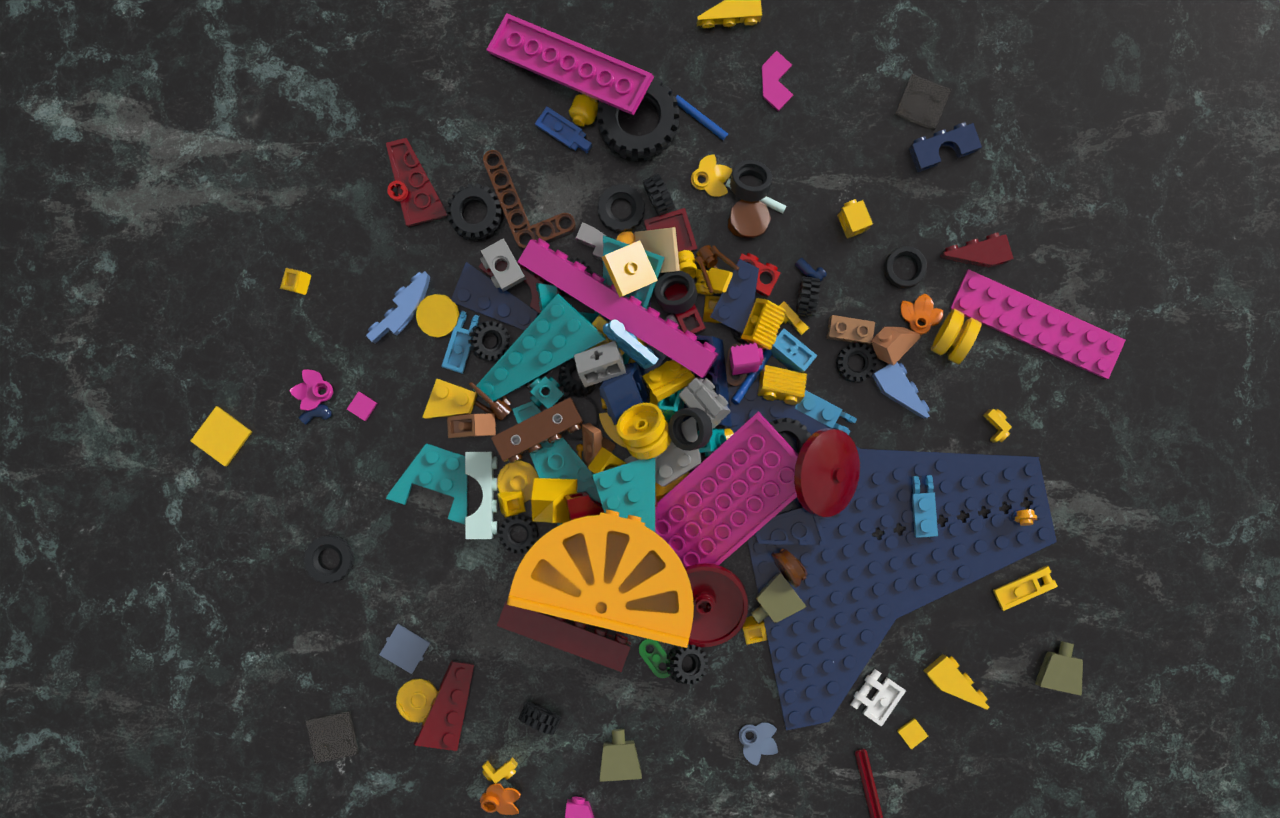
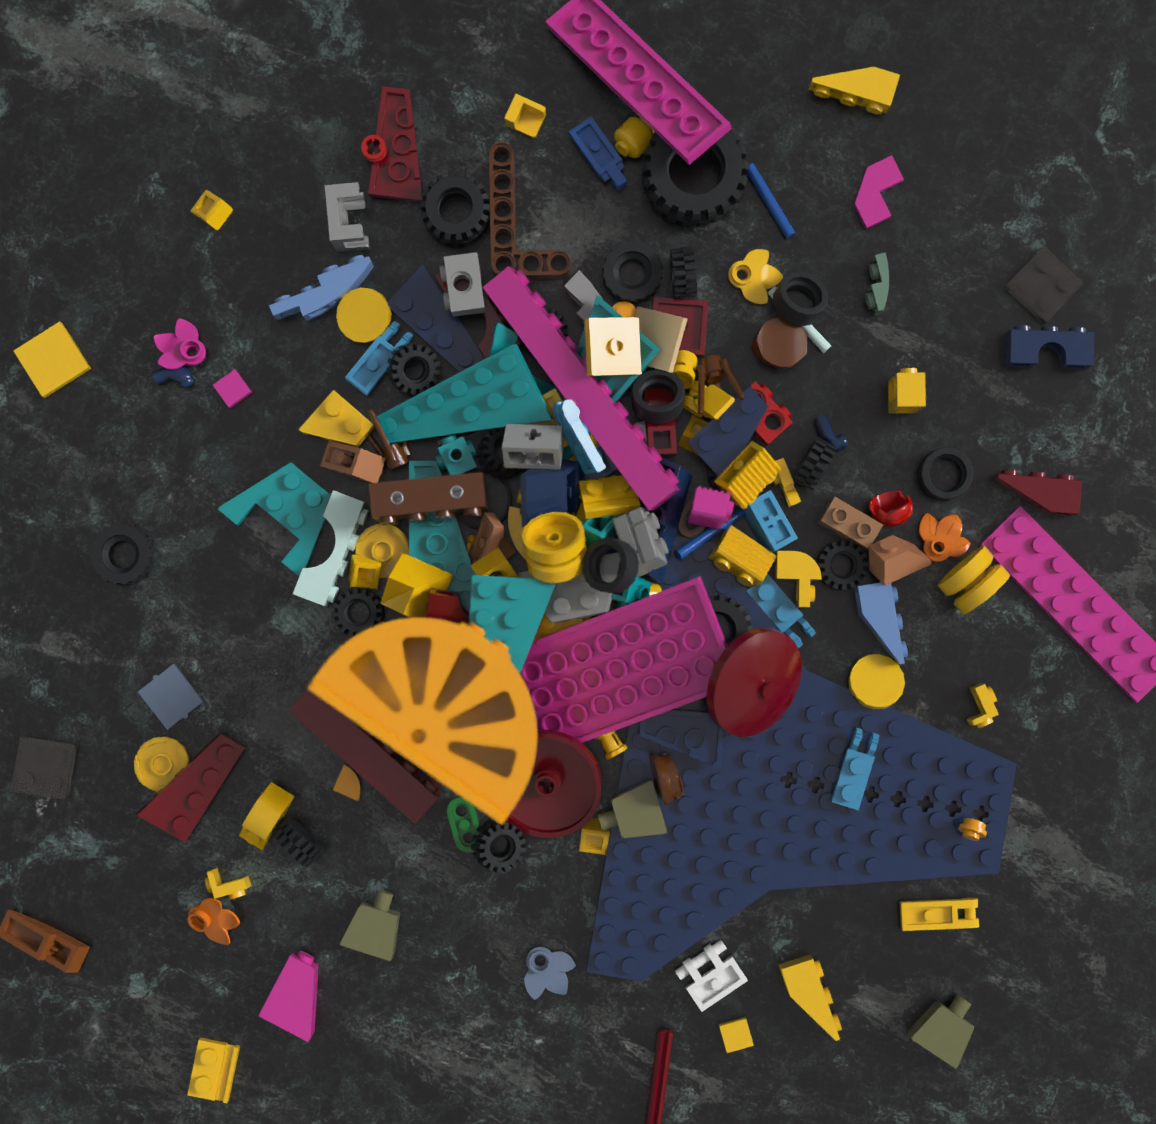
camera: 25 degrees right, 0 degrees up
(387, 238) = (339, 200): none -> light grey panel
(498, 124) = (525, 116): none -> yellow panel
(509, 708) = (266, 815): none -> yellow brick
(559, 661) = (348, 783): none -> light orange tile
(741, 558) = (611, 744): none -> yellow bush
(805, 154) = (878, 292): none -> sand green slope
(827, 376) = (798, 567): none -> yellow brick
(876, 307) = (891, 508): none -> red hair
(914, 437) = (876, 681): none -> yellow tile

